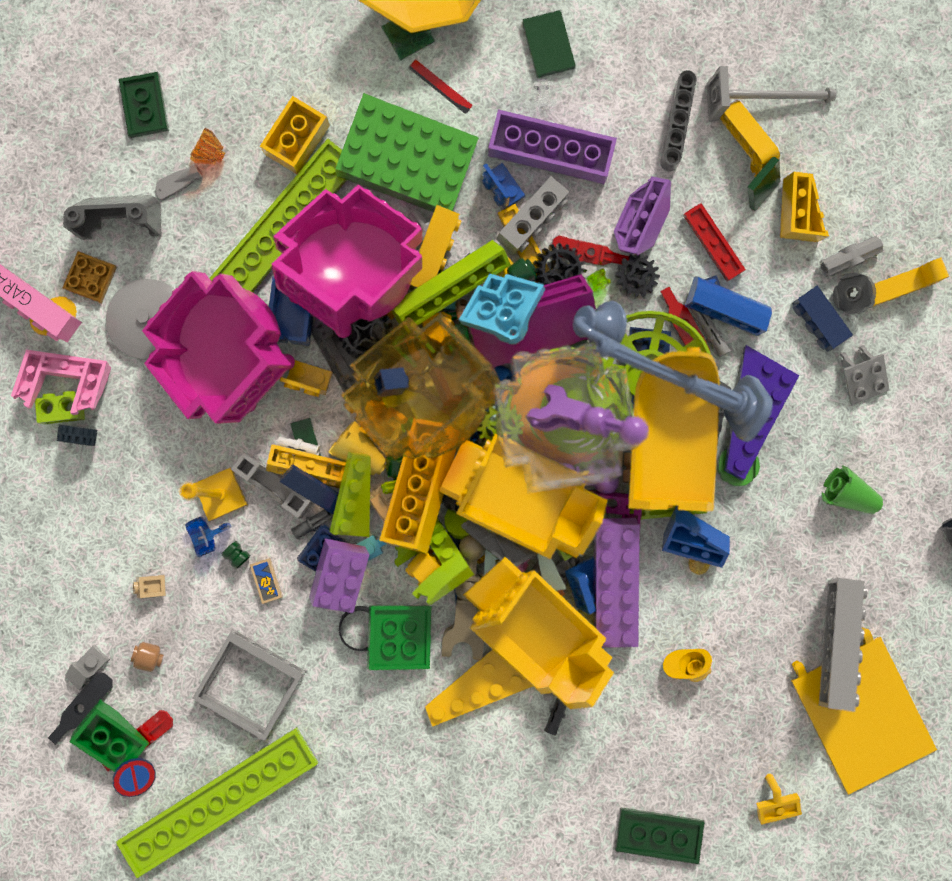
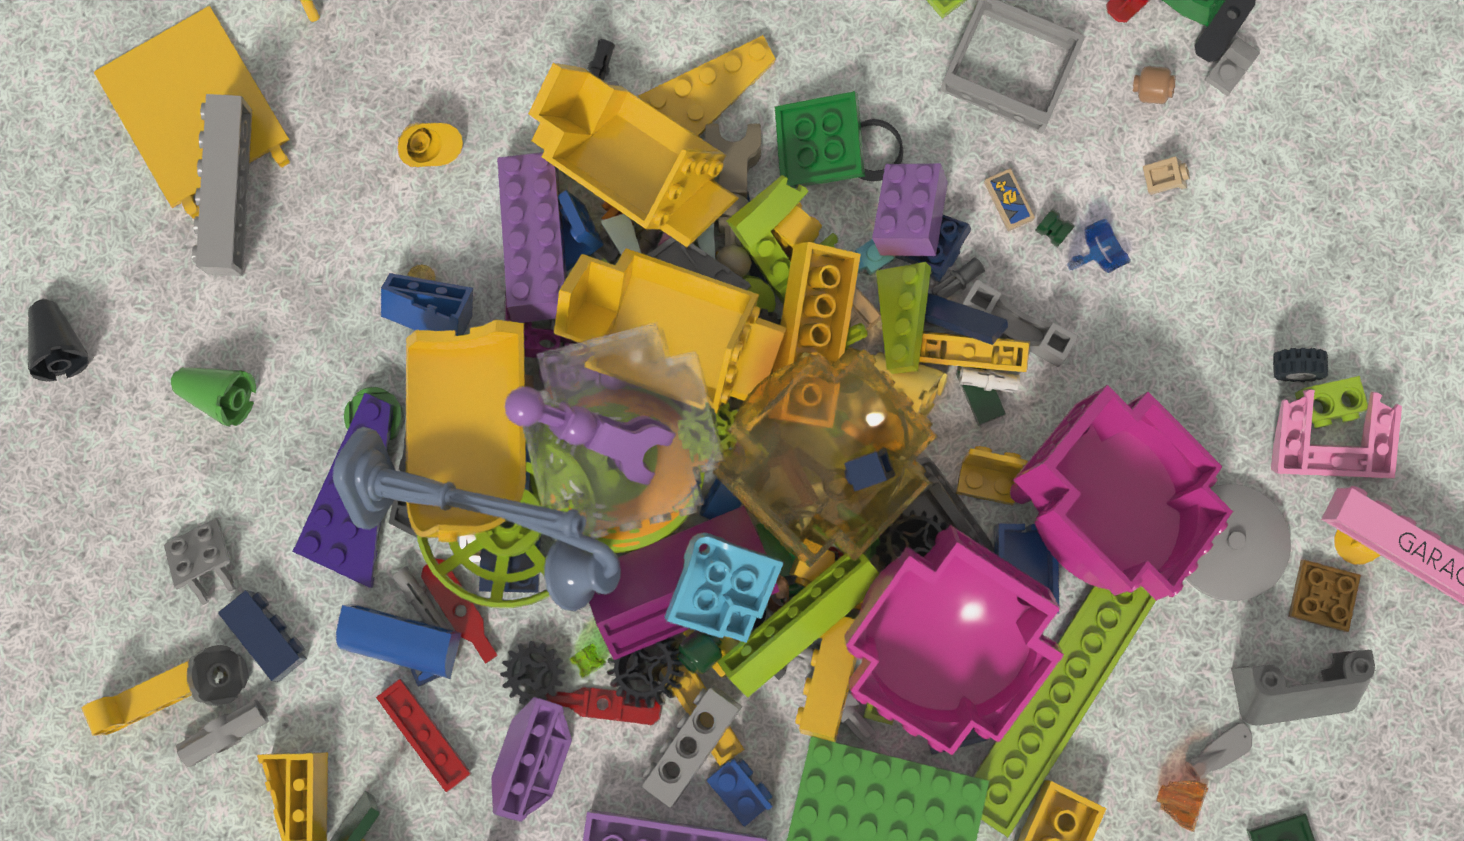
camera: 175 degrees right, 5 degrees down
(217, 493) = (1090, 305): yellow tile -> none

